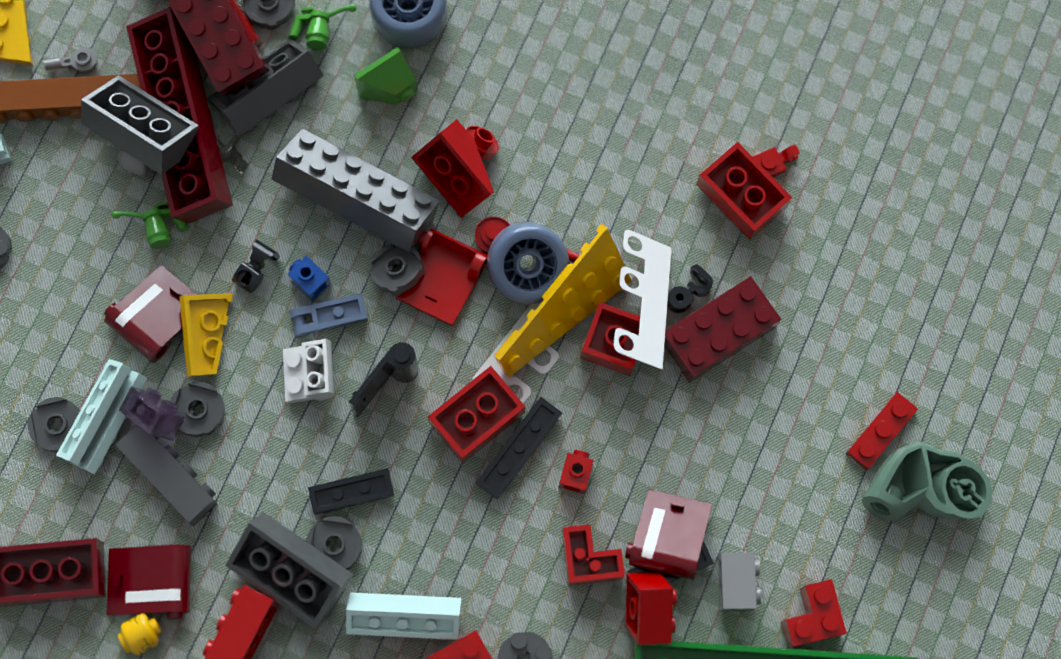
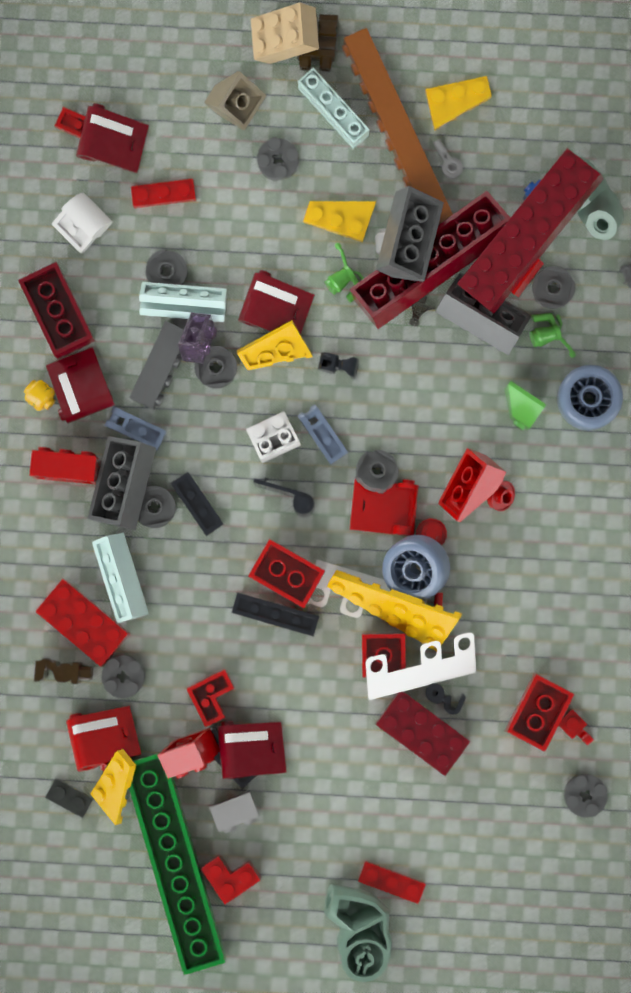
camera: 80 degrees right, 10 degrees up
(84, 202) = (341, 217): none -> yellow wing
(227, 532) = (136, 428): none -> sand blue plate
(308, 278) = (345, 408): blue brick -> none
(355, 189) = (424, 416): dark grey brick -> none
(571, 480) = (264, 663): red brick -> none
(856, 165) = (574, 801): none -> dark grey plate

